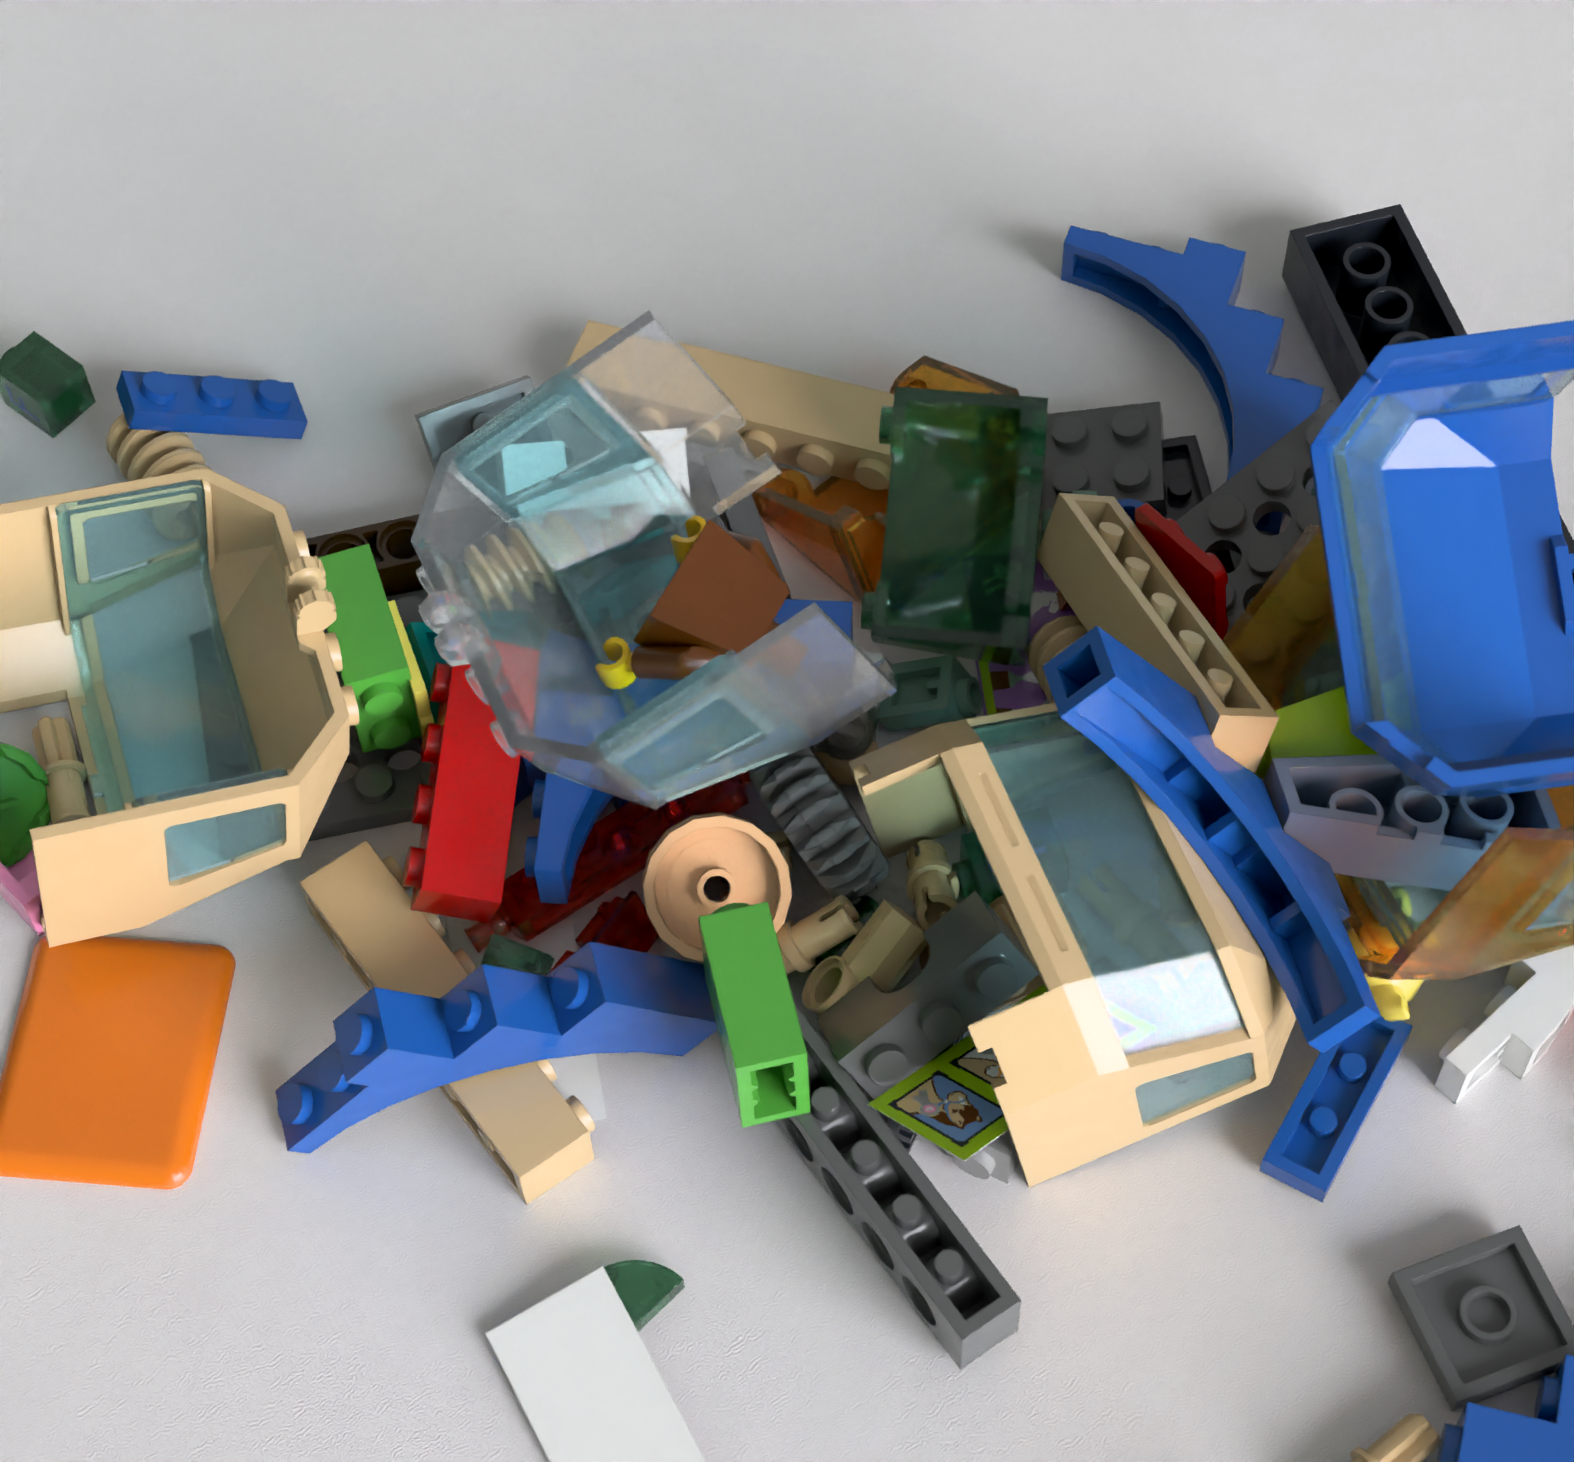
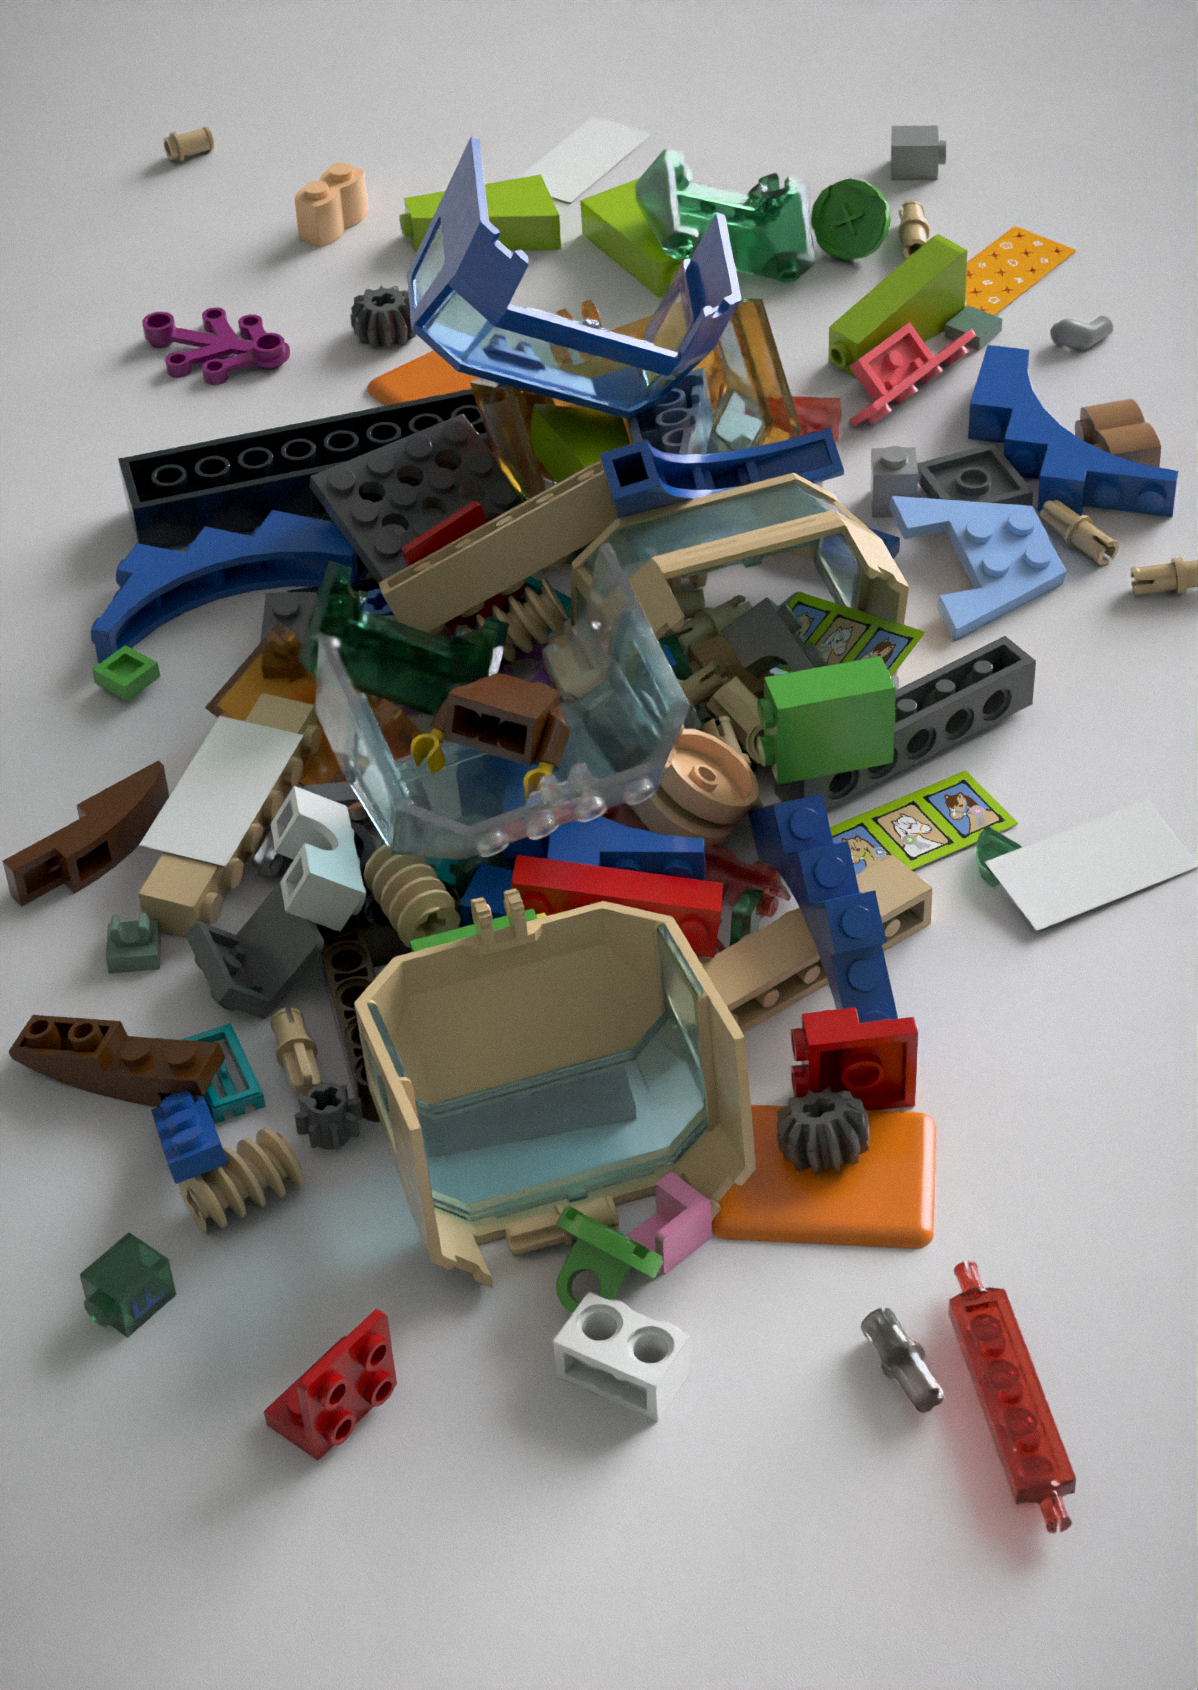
camera: 90 degrees left, 15 degrees down
(112, 1044) = (823, 1130): none -> dark grey gear
(218, 1063) = (866, 1058): none -> red plate
(352, 453) = (233, 1100): none -> teal tile
(356, 506) = (296, 1051): none -> tan axle
(364, 340) = (108, 1062): none -> reddish brown slope
(551, 339) = (133, 944): none -> sand green tile
(706, 1193) = (923, 824): none -> sticker
(729, 293) = (102, 837): none -> reddish brown slope
(779, 381) = (221, 791): none -> white sticker
(1024, 282) = (126, 672): none -> bright green plate
(1303, 1345) = (999, 549): none -> light blue wing
(1468, 1189) = (892, 474): none -> light grey brick

